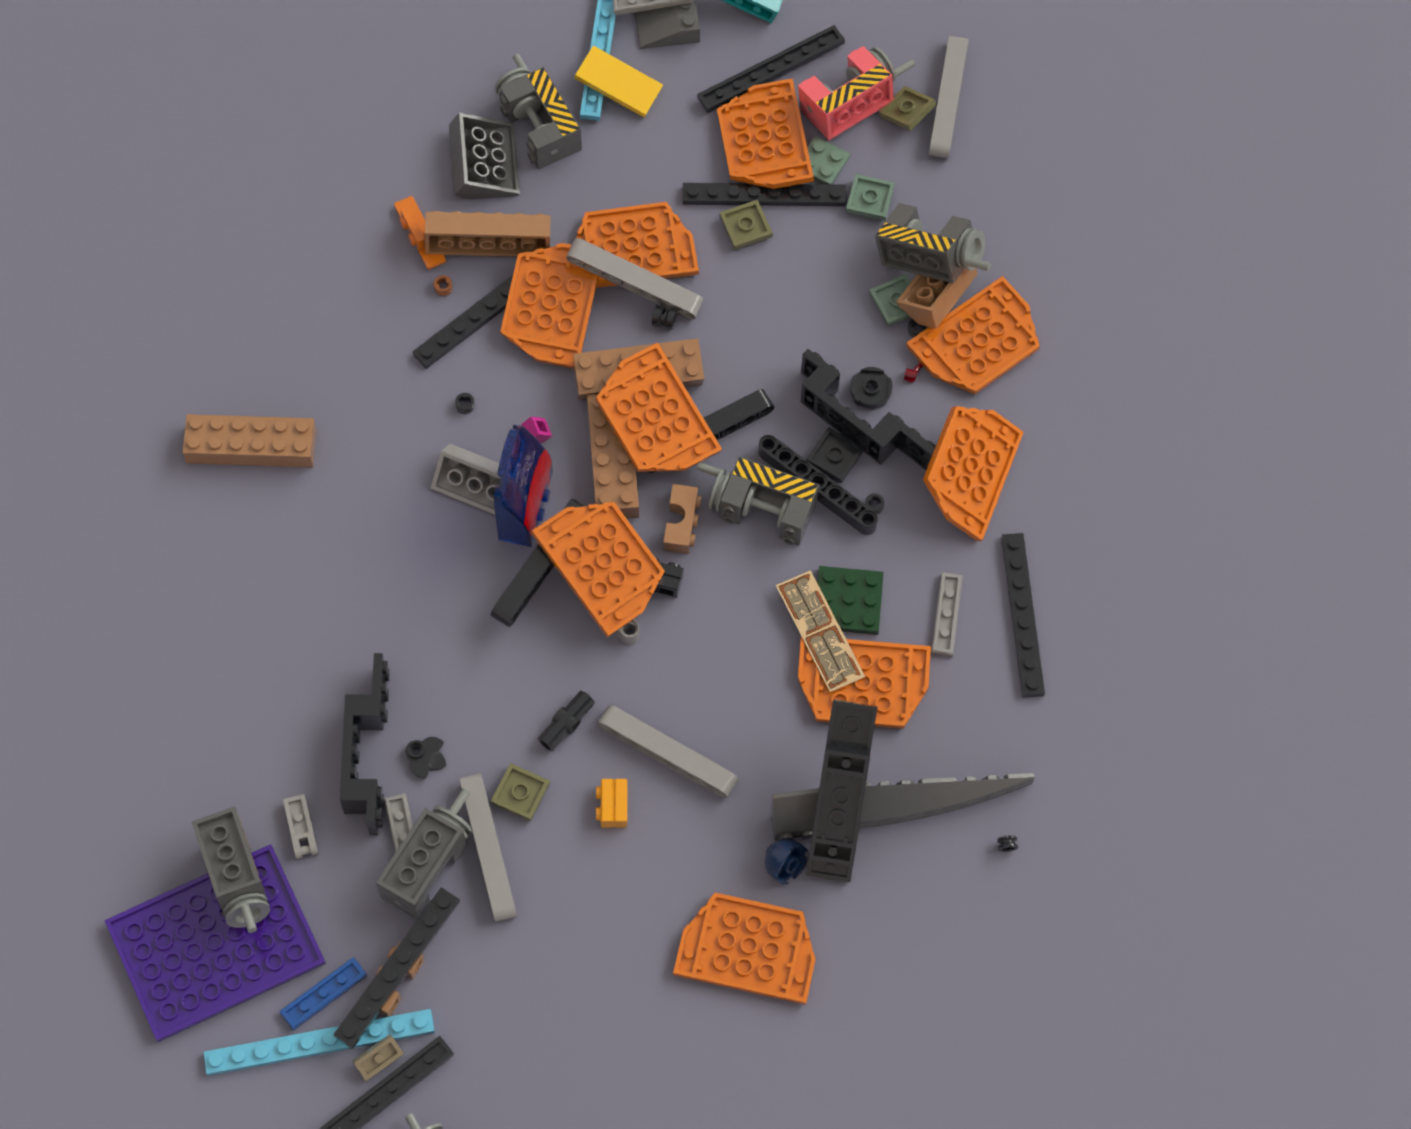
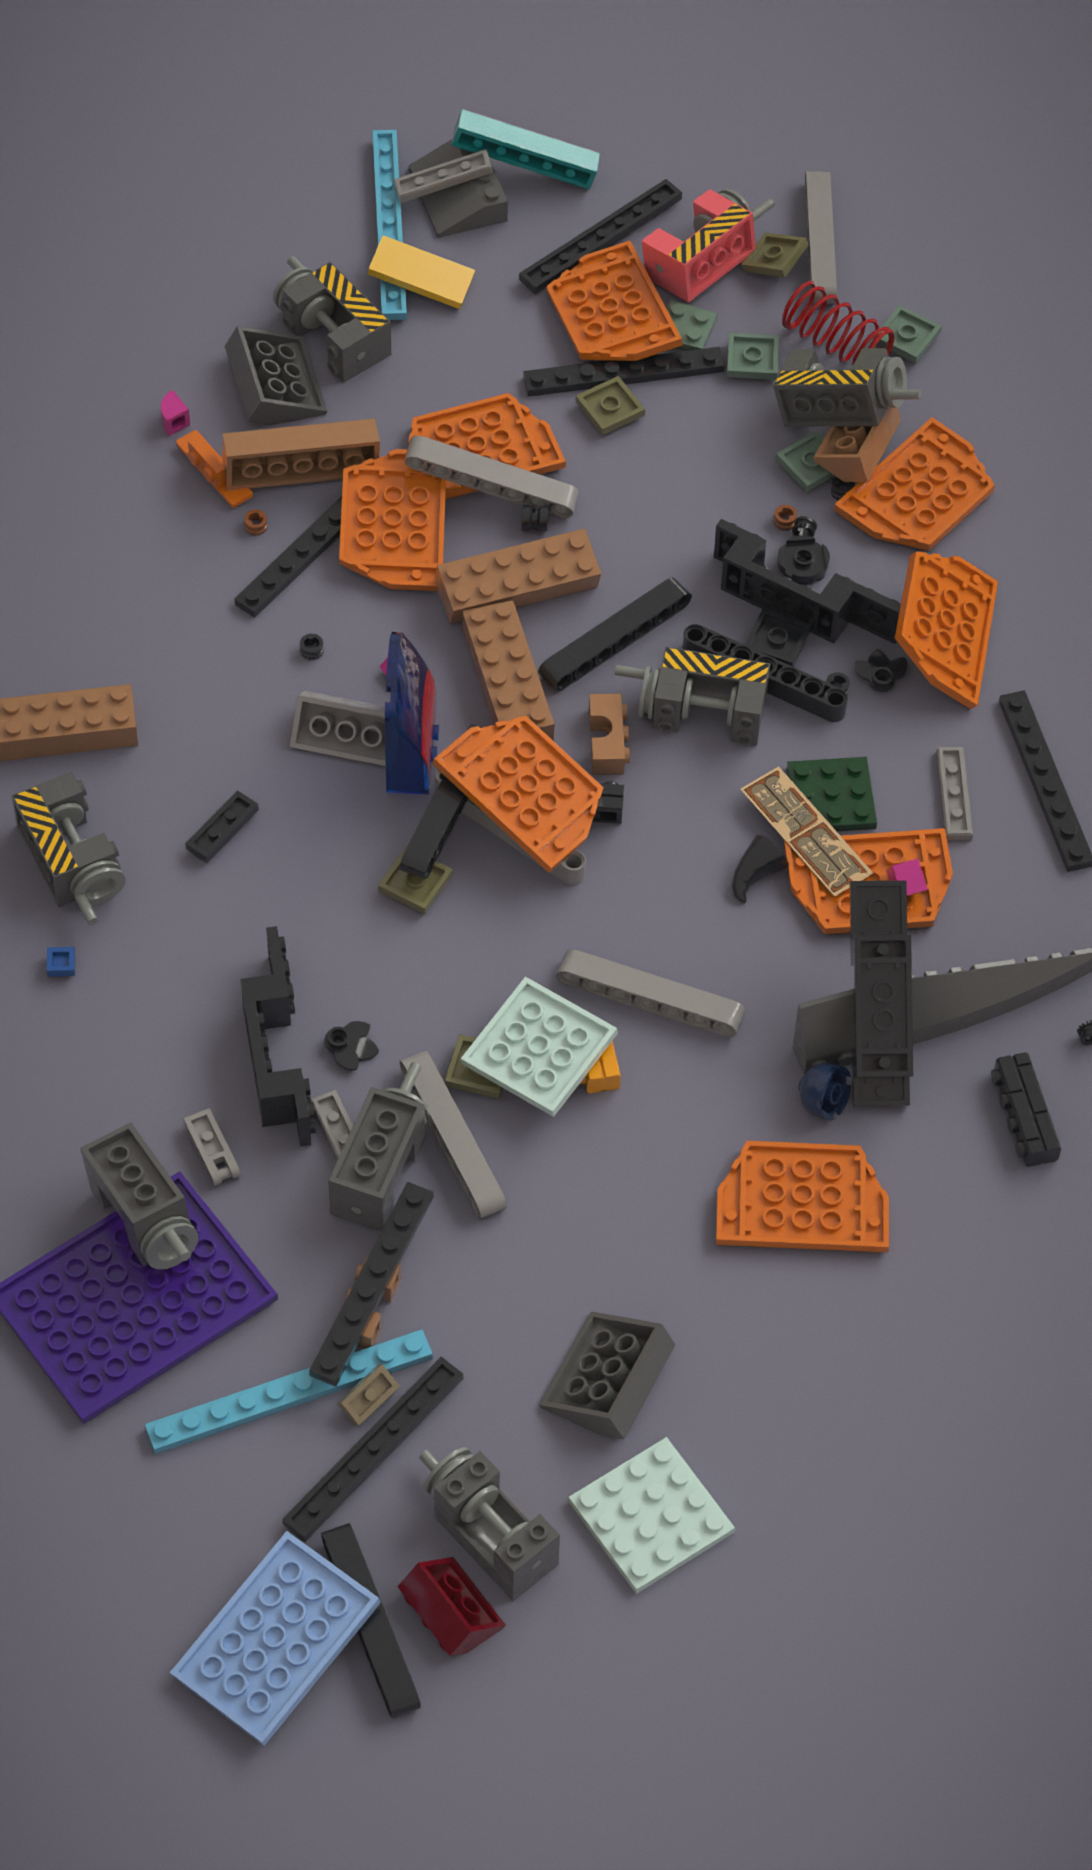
camera: 10 degrees left, 10 degrees down
(215, 647) = (61, 961): none -> blue plate
(249, 574) = (77, 872): none -> piece
(323, 993) = (282, 1335): blue tile -> none
(363, 550) = (222, 826): none -> black plate
(396, 179) = (174, 413): none -> dark pink brick
(499, 633) = (413, 890): none -> olive plate
(565, 1071) = (608, 1373): none -> dark grey slope
(566, 720) = (525, 965): black piece -> none
(568, 787) = (539, 1046): none -> light aqua plate
(655, 414) = (553, 617): orange plate -> none
(775, 651) = (758, 861): none -> black hat
(863, 340) = (782, 523): none -> dark orange bush
(878, 359) = (801, 522): none -> black bush
(889, 688) = (908, 871): none -> dark pink brick
(905, 173) = (790, 326): none -> red piece
(911, 375) = (847, 539): dark red hand -> none
(911, 494) = (881, 668): none -> black plate
(941, 902) = (1026, 1109): none -> black brick
(1000, 196) = (912, 333): none -> sand green plate

